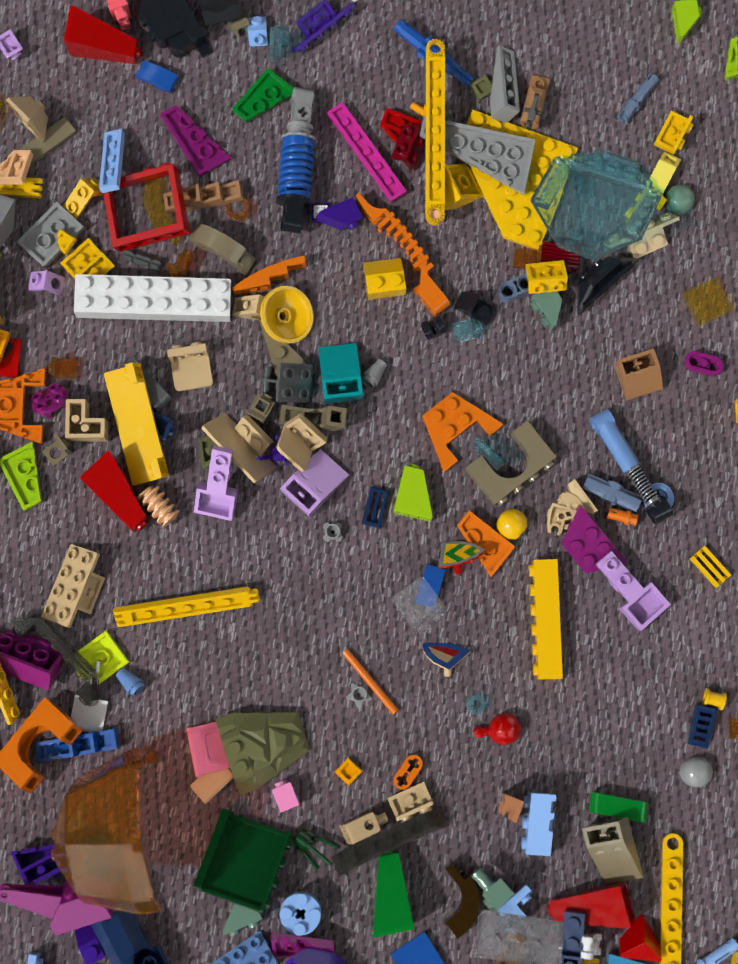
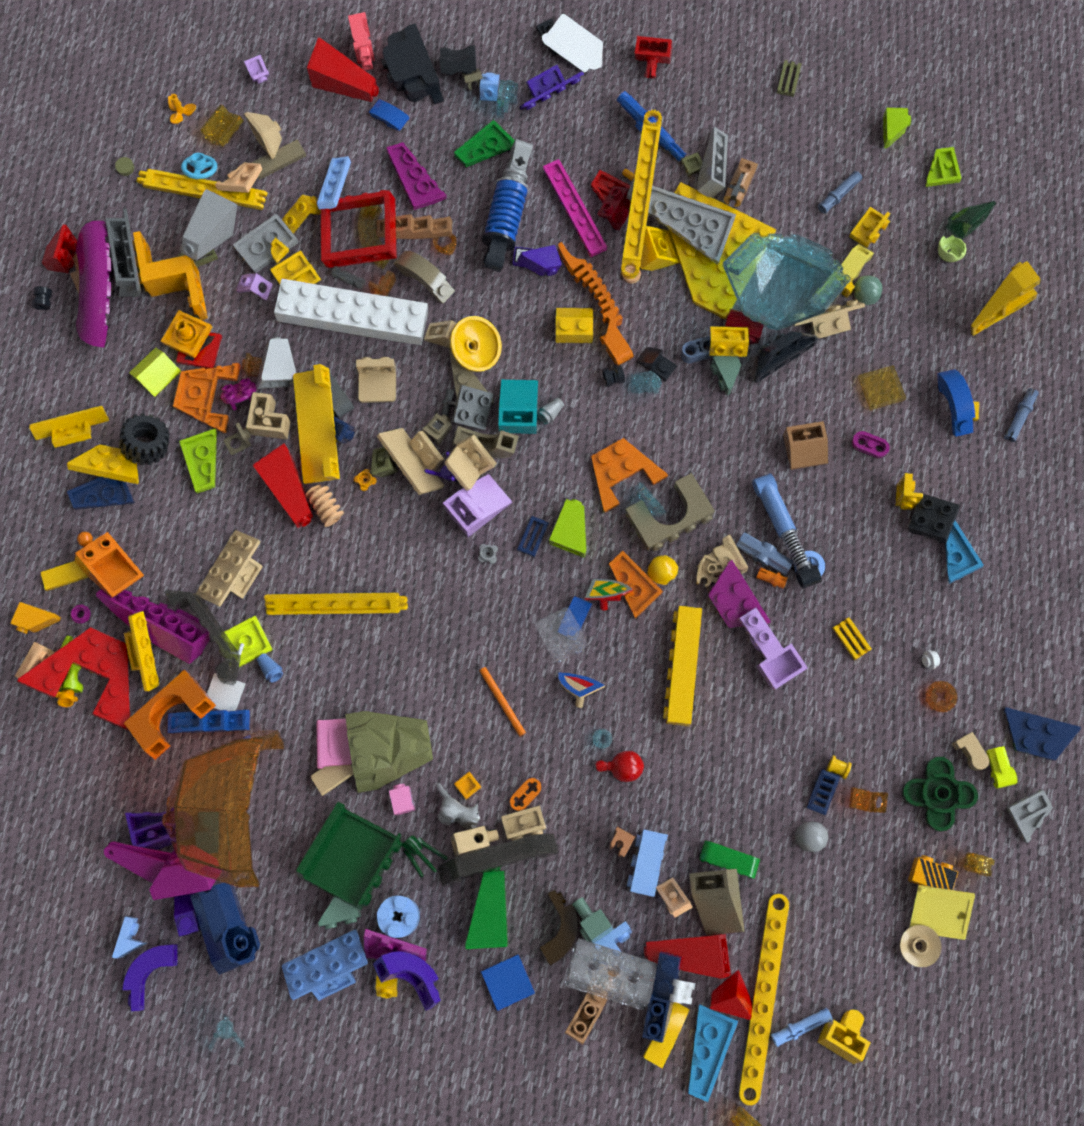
camera: 10 degrees right, 5 degrees down
(84, 365) = (276, 365): none -> slope
(190, 472) = (365, 474): none -> light orange plate
(215, 497) = (378, 502): lavender plate -> none
(262, 279) = (459, 308): orange slope -> none
(338, 799) = (453, 811): none -> light grey animal
(359, 699) = (484, 712): light grey plate -> none
(523, 257) = (708, 320): clear orange bracket -> none
(569, 853) = (674, 897): none -> light nougat slope

